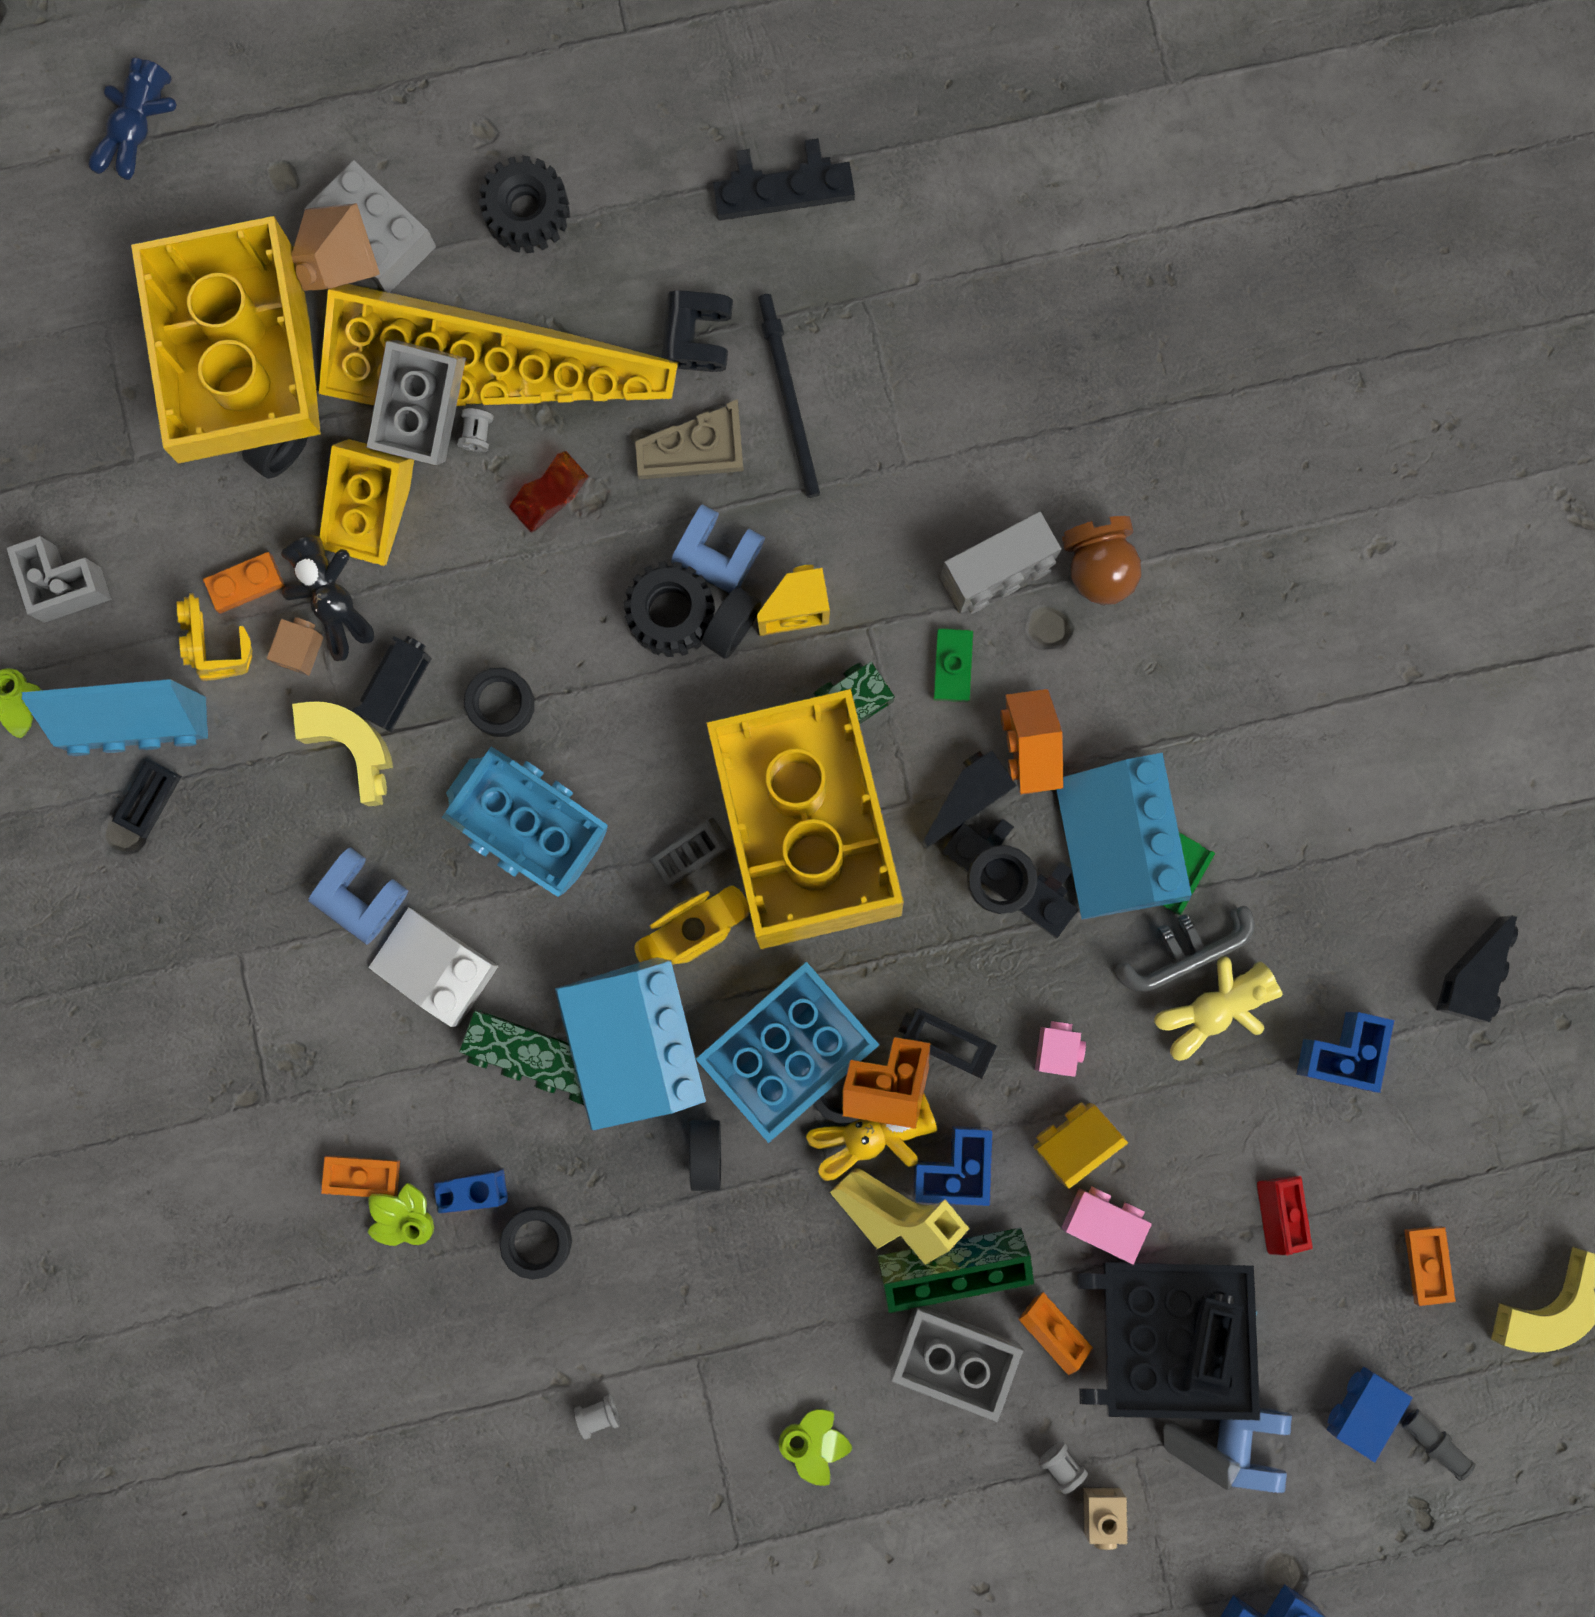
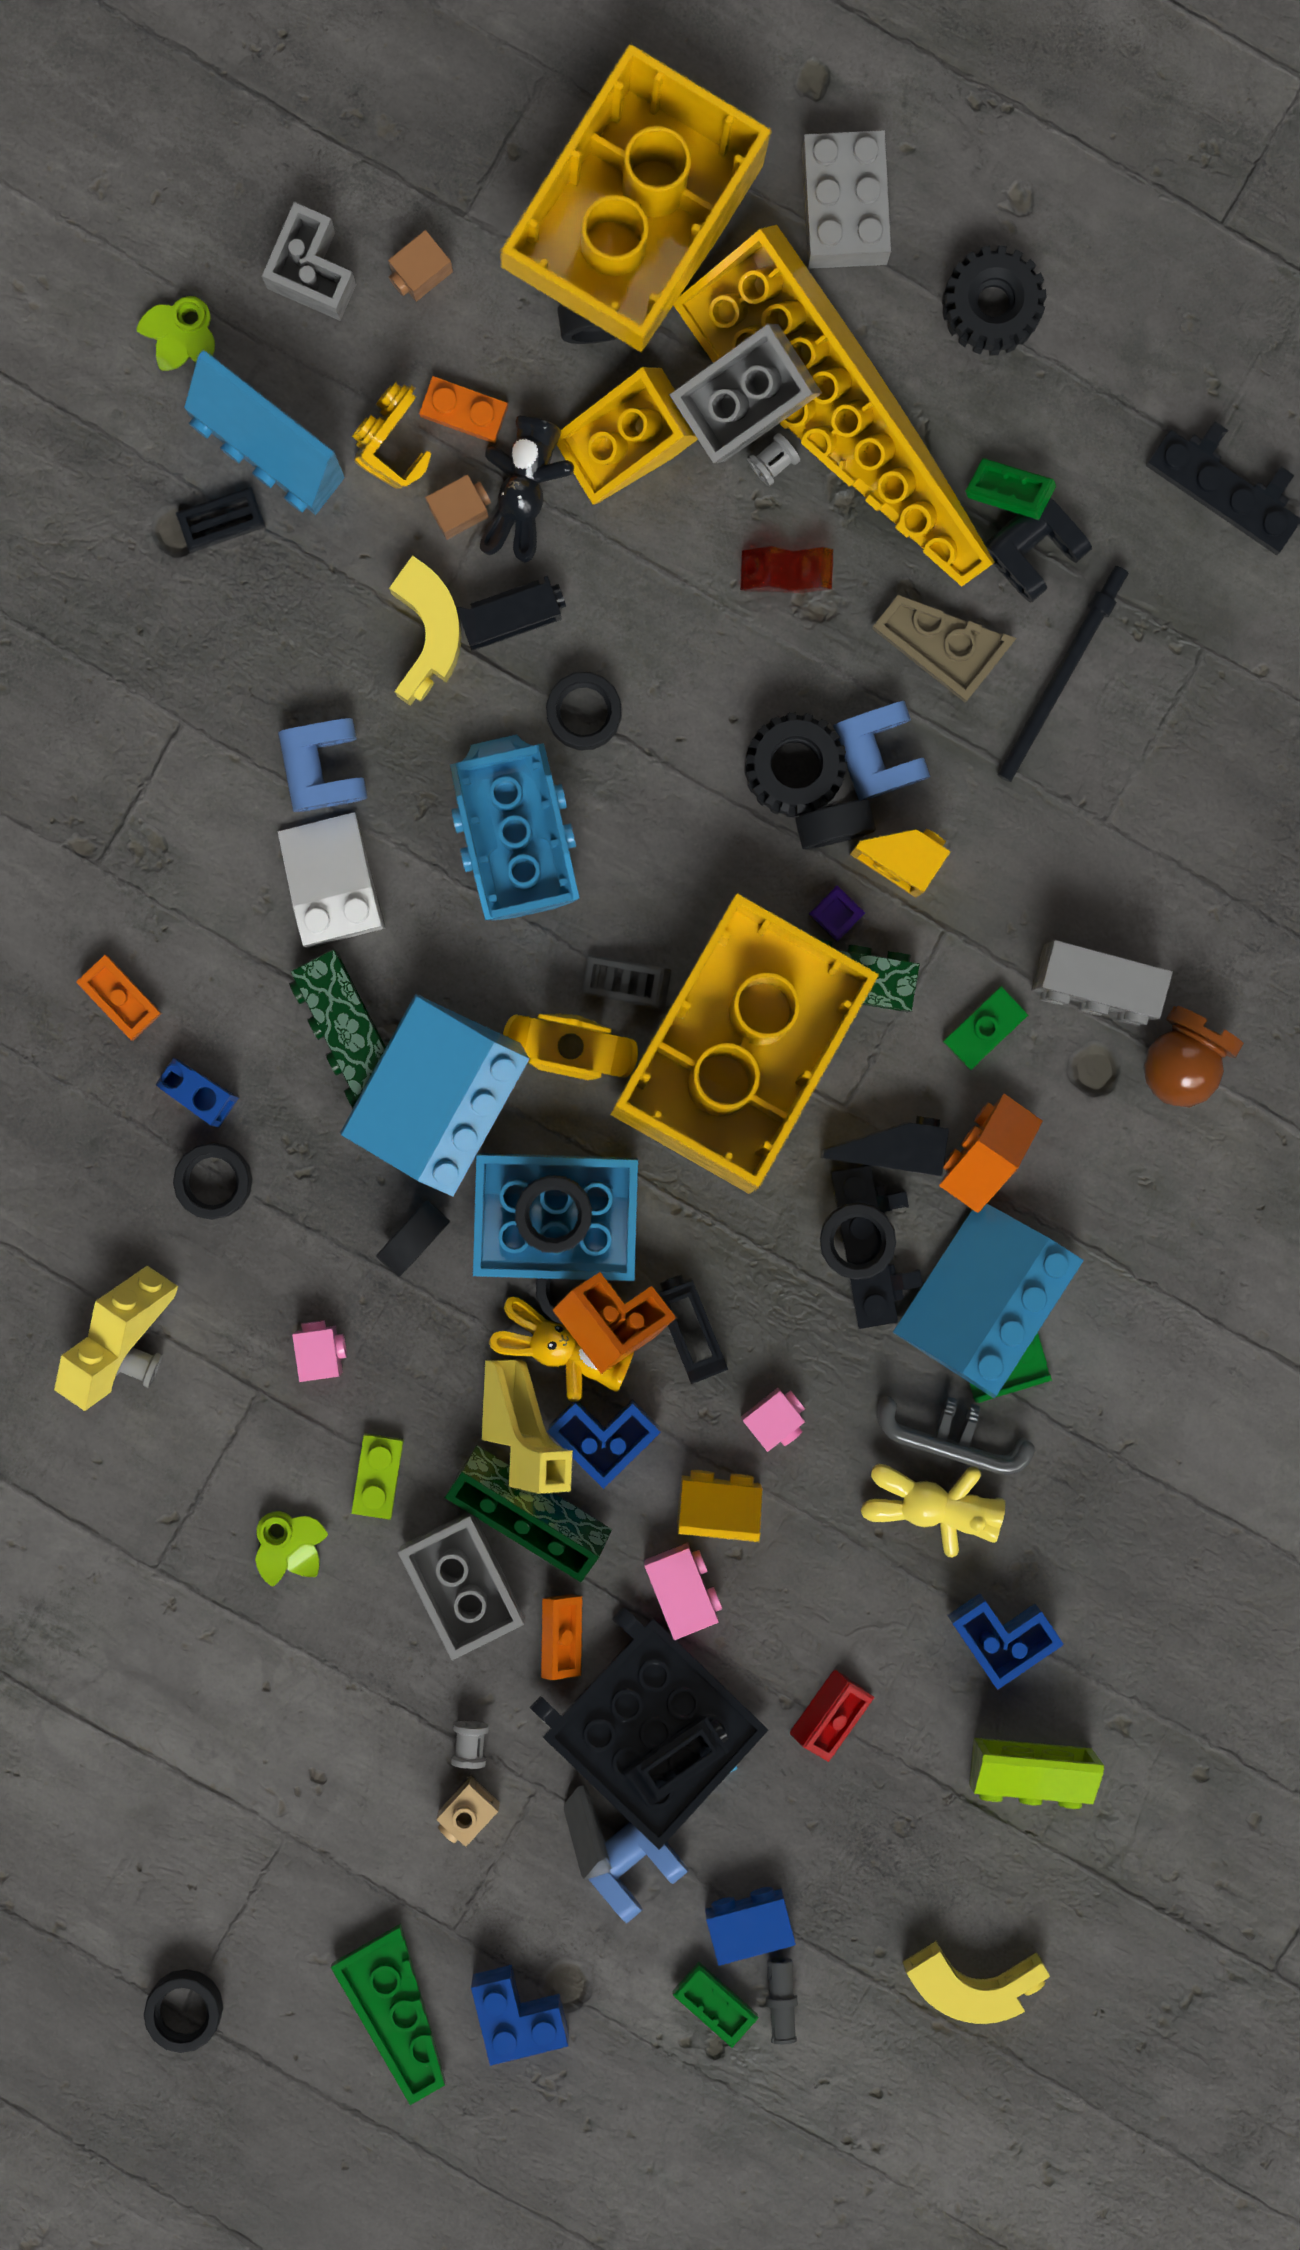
camera: 40 degrees right, 5 degrees up
(131, 517) = (419, 267): none -> medium nougat brick
(332, 248) = (796, 194): medium nougat slope -> none
(396, 1214) = (122, 1055): lime plate -> none
(558, 1404) = (115, 1327): none -> light yellow arch
(645, 309) = (1010, 488): none -> green plate
(712, 1292) = (318, 1351): none -> bright pink brick
(787, 681) = (836, 913): none -> dark purple tile
(790, 1077) = (562, 1243): none -> black tyre
(830, 1340) = (377, 1476): none -> lime plate
(1396, 1491) = (715, 2004): none -> green plate
(1430, 1265) = (908, 1860): orange plate -> none
(1456, 1125) = (1035, 1772): none -> lime slope
(1475, 980) = (1163, 1674): black slope -> none

